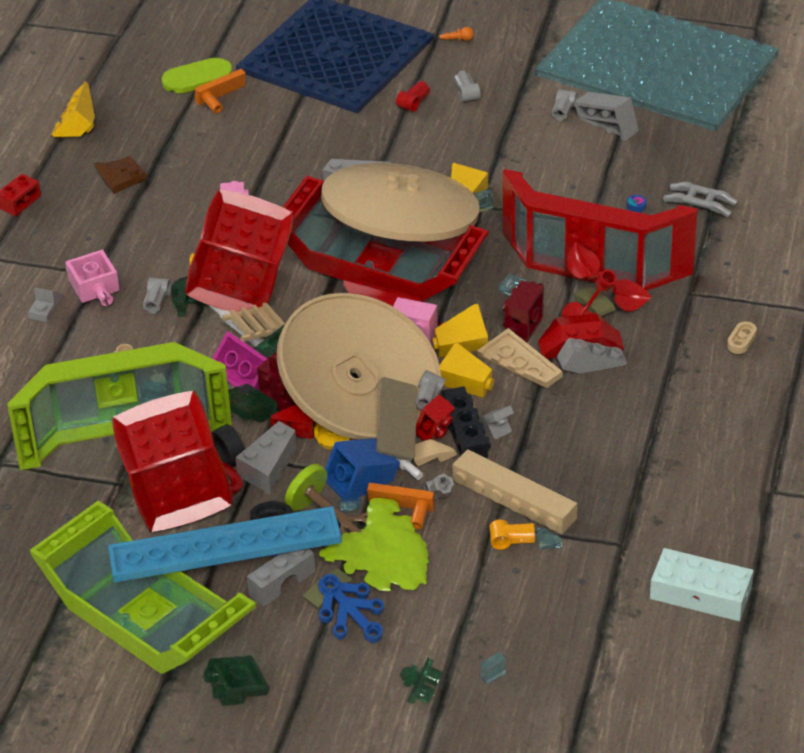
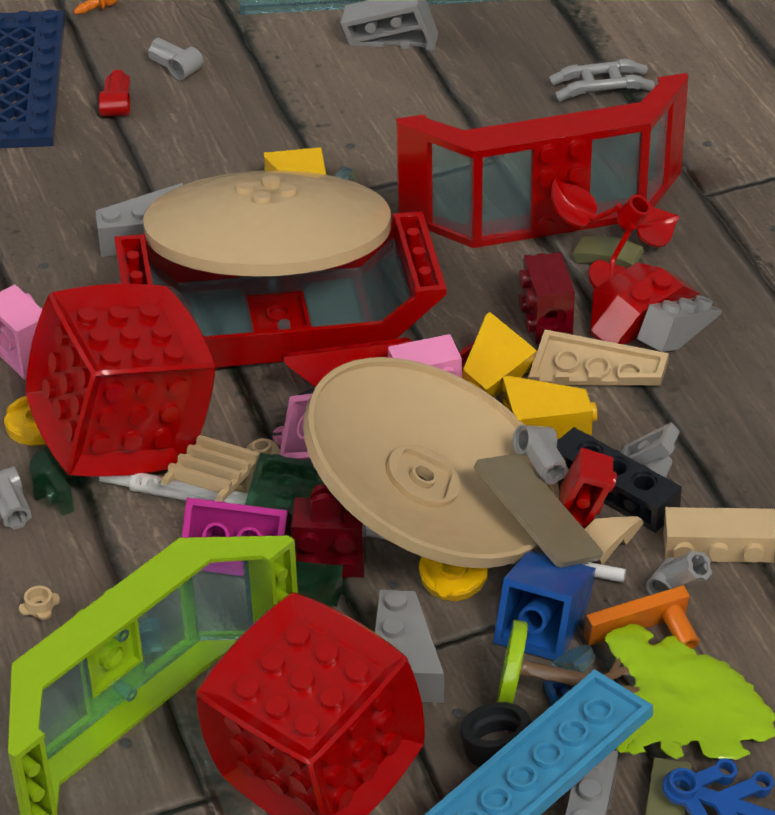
camera: 35 degrees left, 0 degrees up
(297, 420) = (389, 571): red slope -> none
(509, 283) = (483, 276): clear light blue tile -> none
(564, 103) = (321, 31): light grey piece -> none
(636, 203) = (529, 112): blue tile -> none

